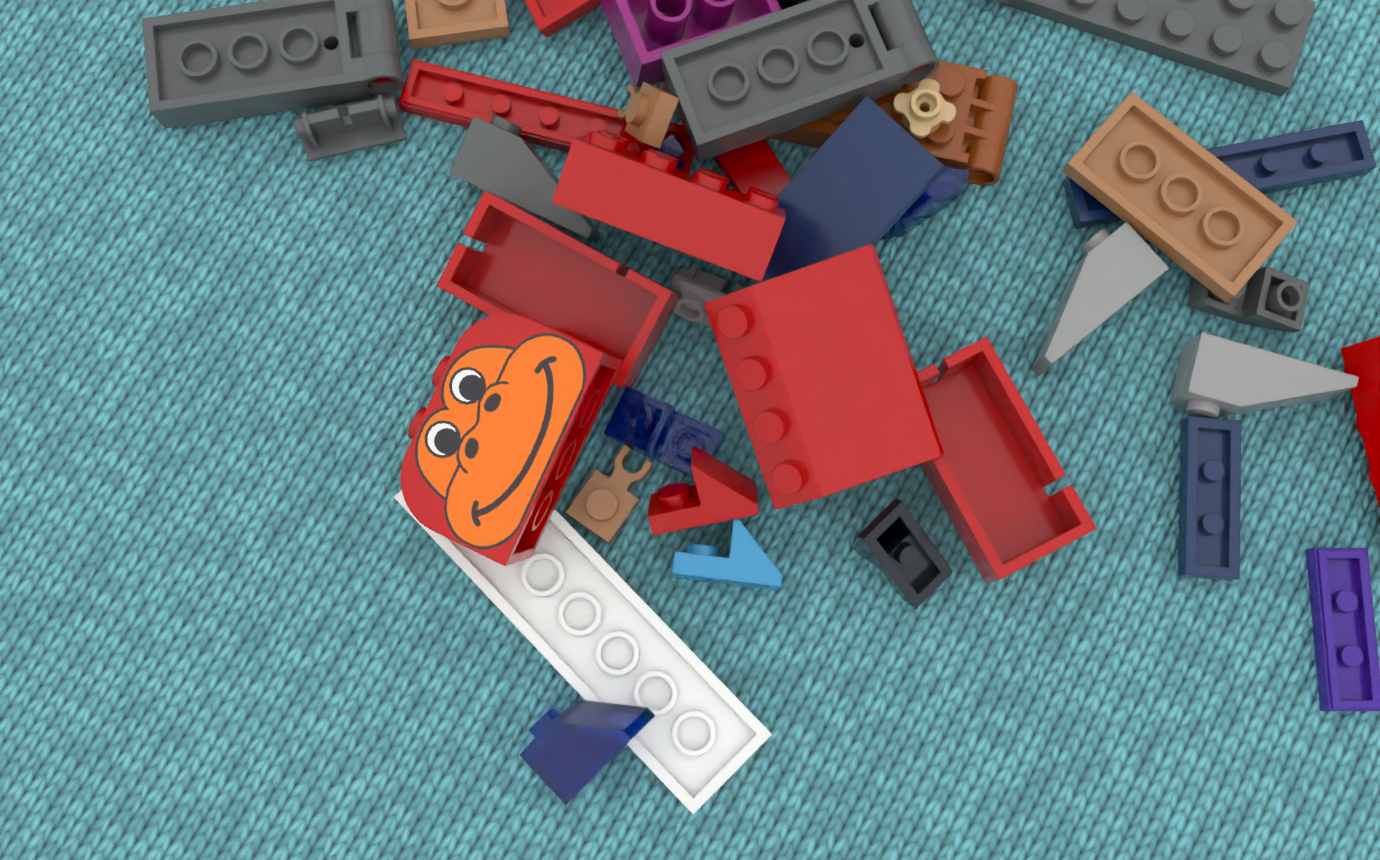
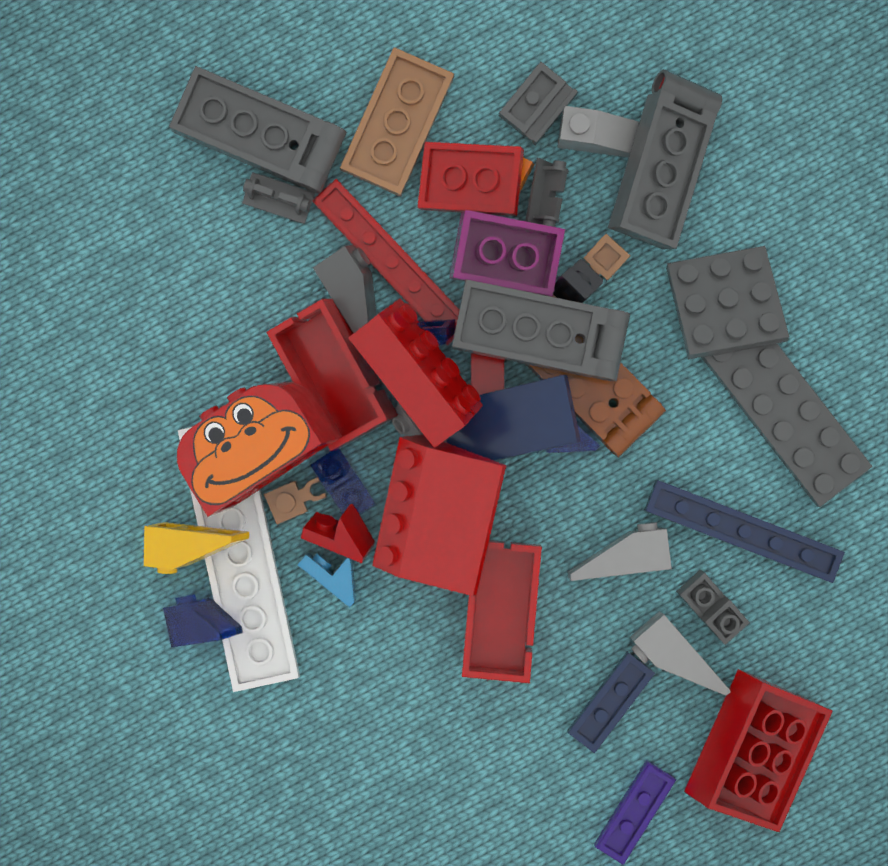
camera: 30 degrees right, 10 degrees up
(499, 647) = (179, 545): none -> yellow slope
(648, 113) = (441, 305): medium nougat plate -> none
(903, 553) = (426, 631): black slope -> none
(922, 123) = (588, 404): tan plate -> none
(1179, 197) = (705, 533): medium nougat plate -> none

